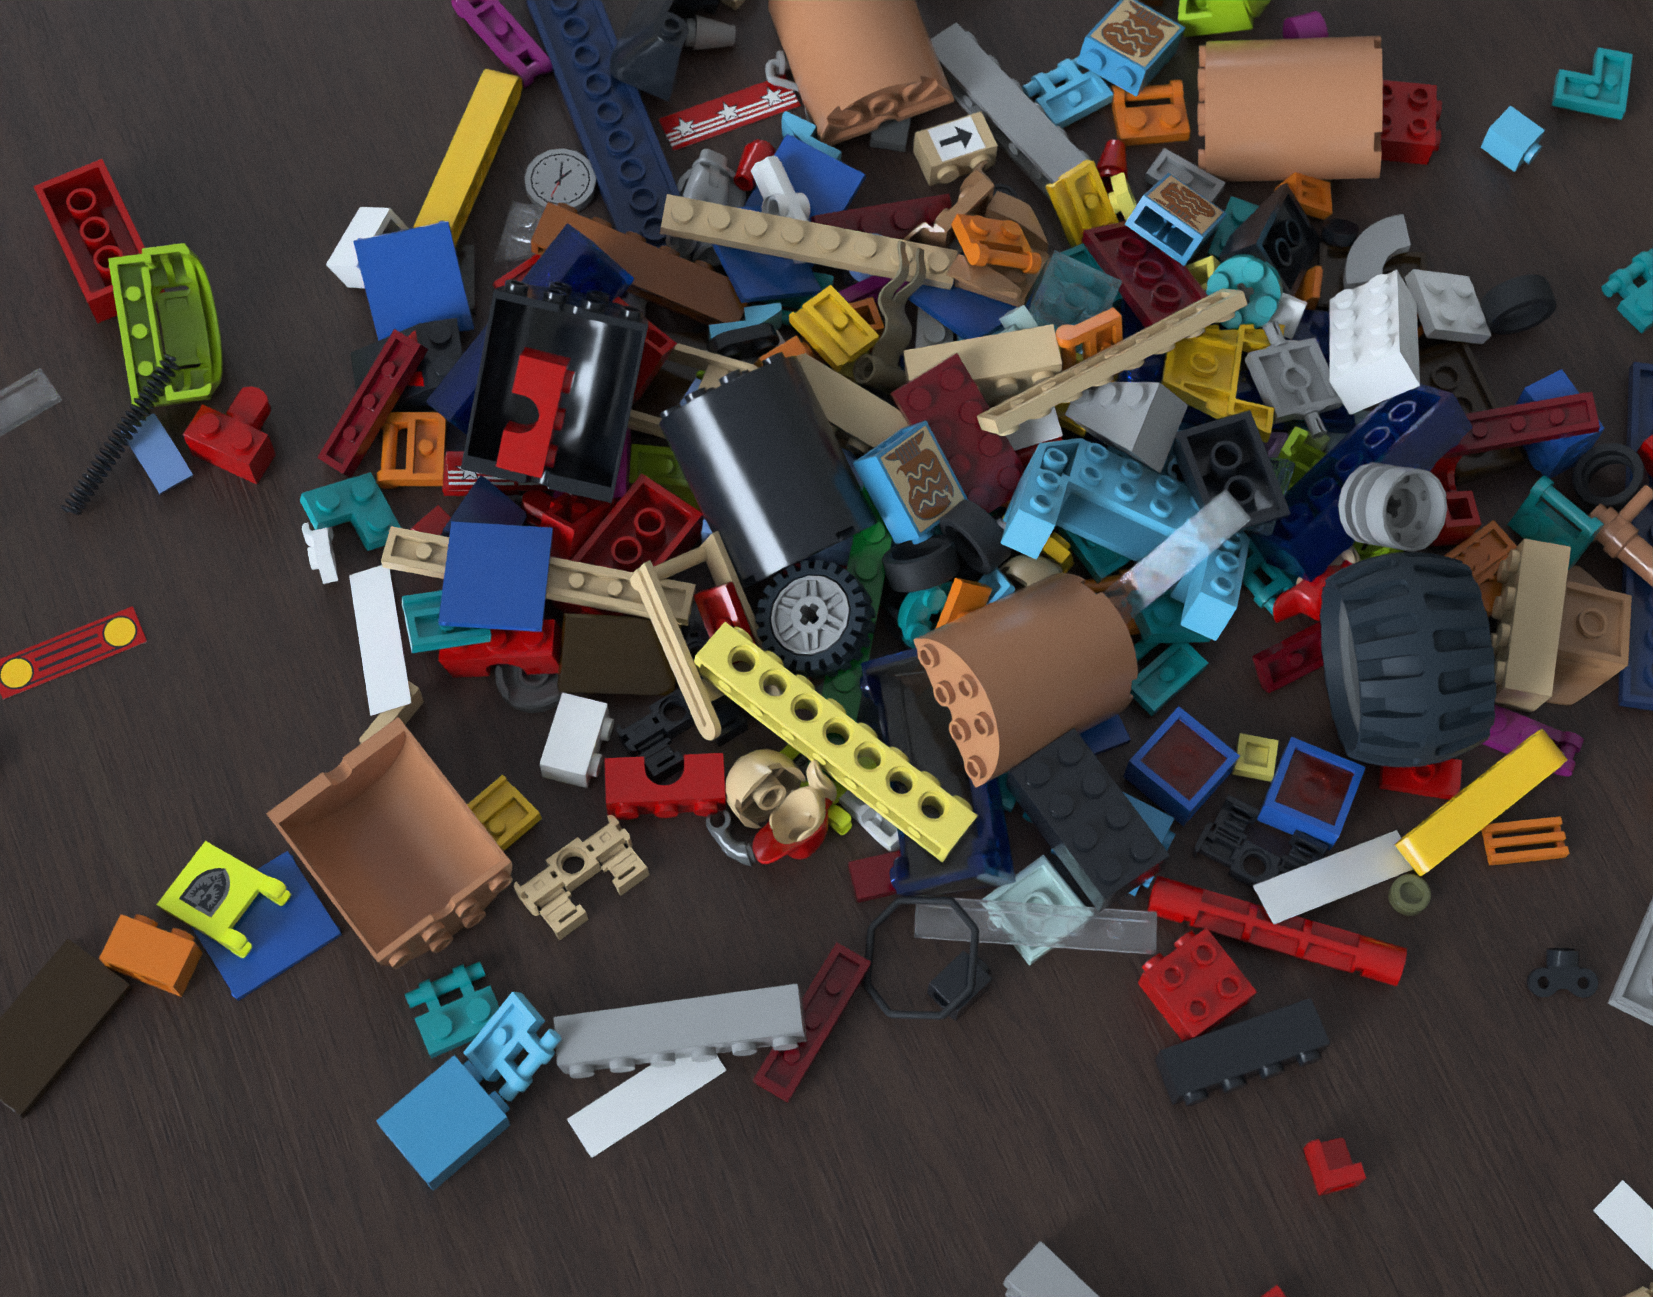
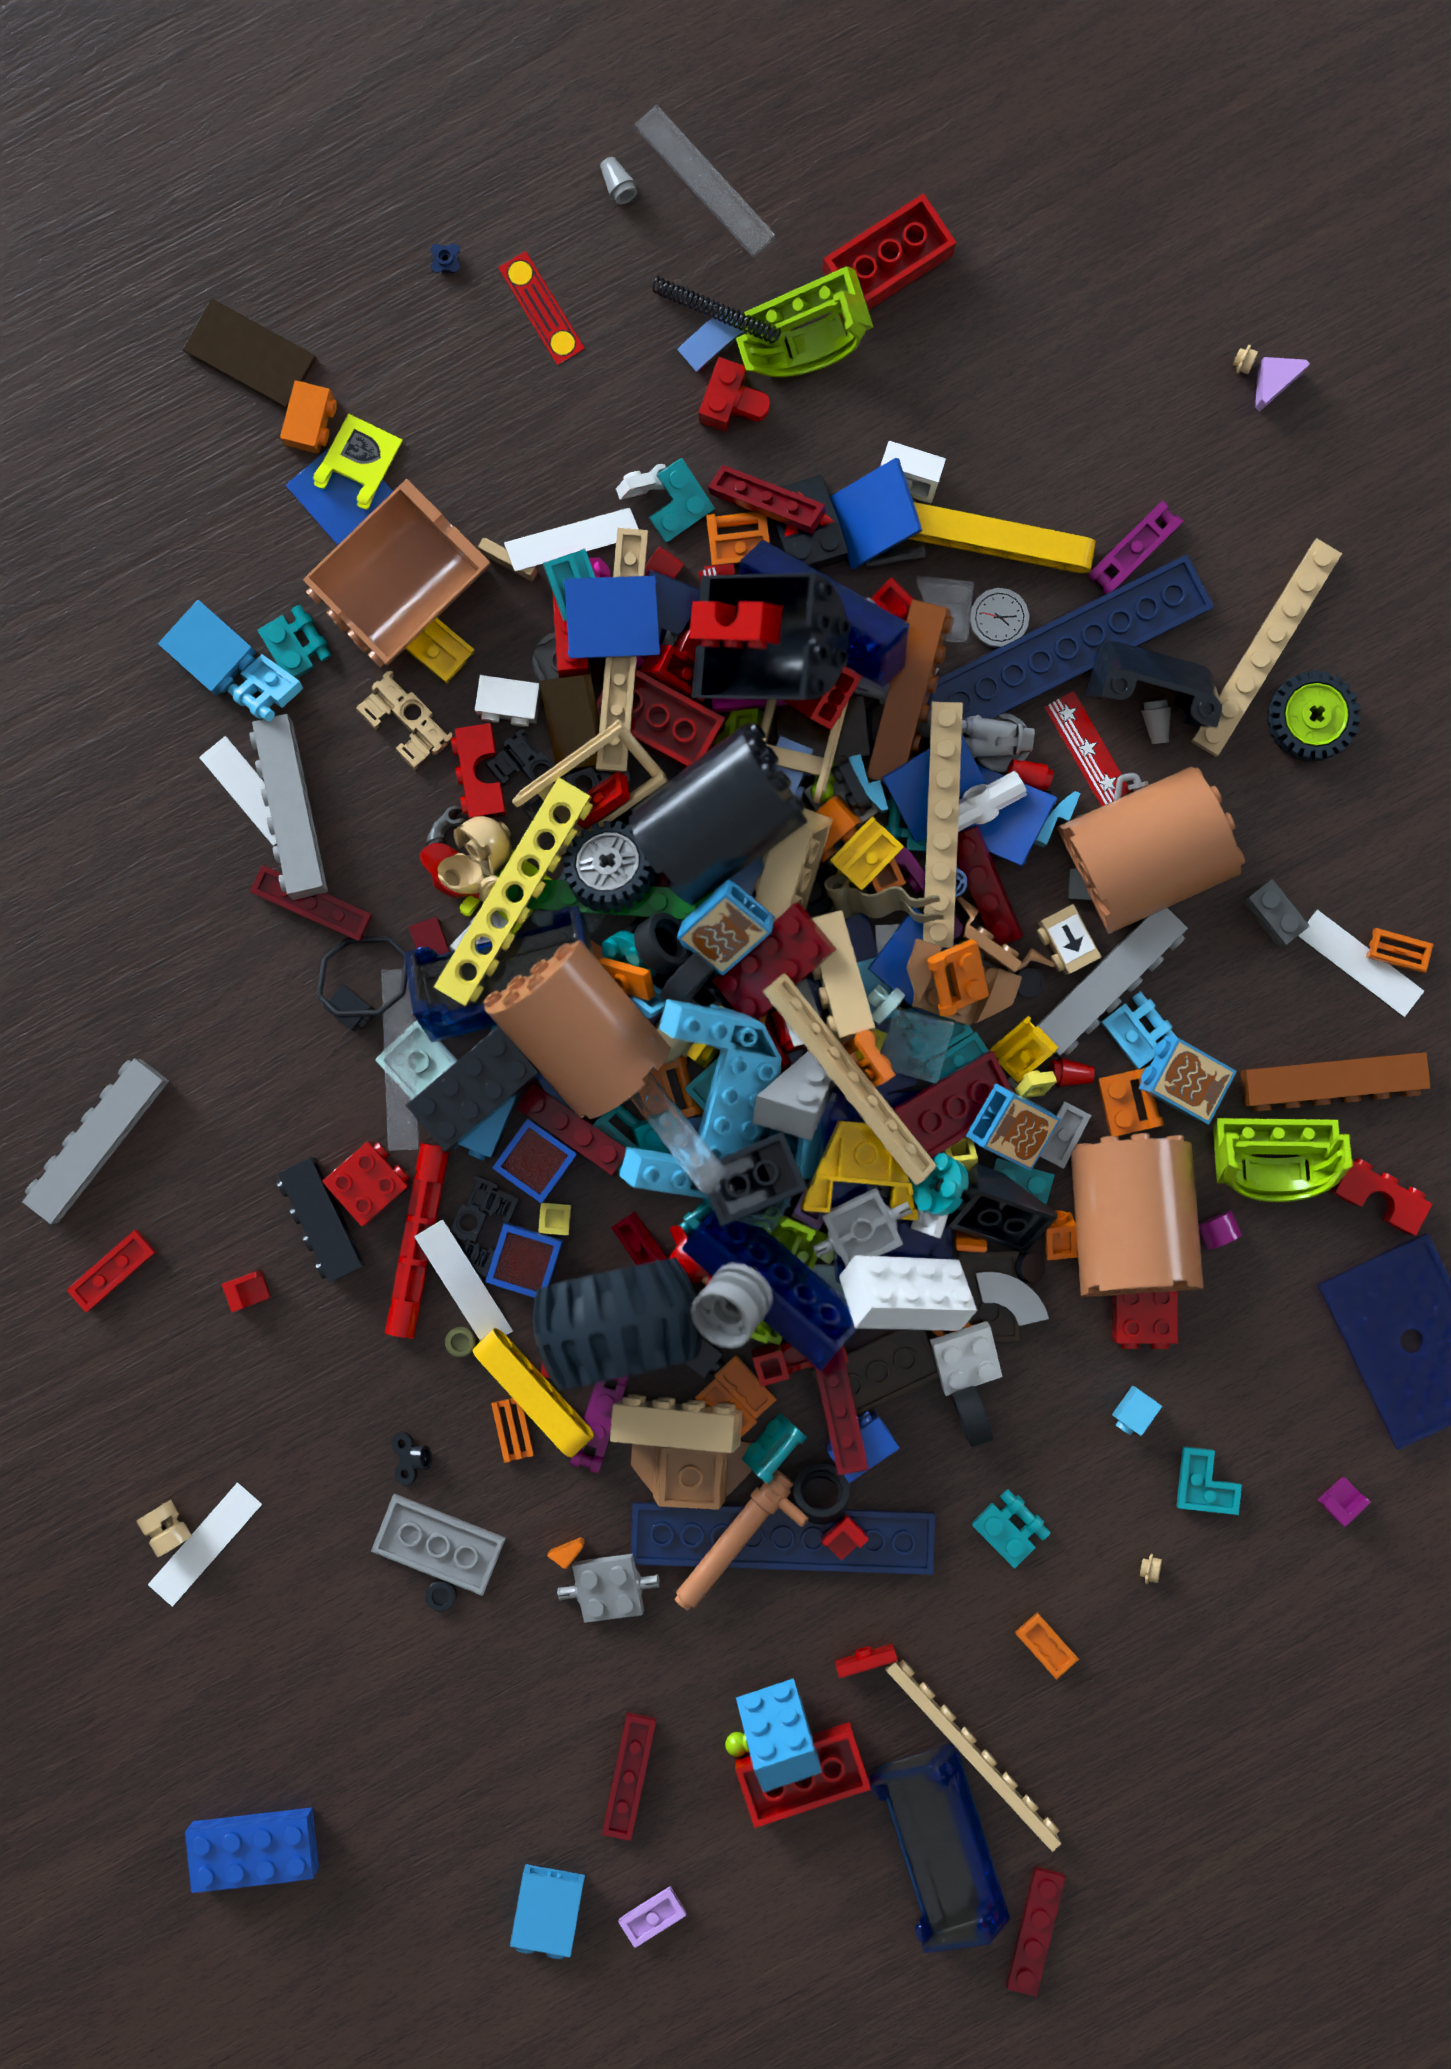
camera: 90 degrees right, 20 degrees up
(1148, 710) = (572, 1129): none -> dark red plate

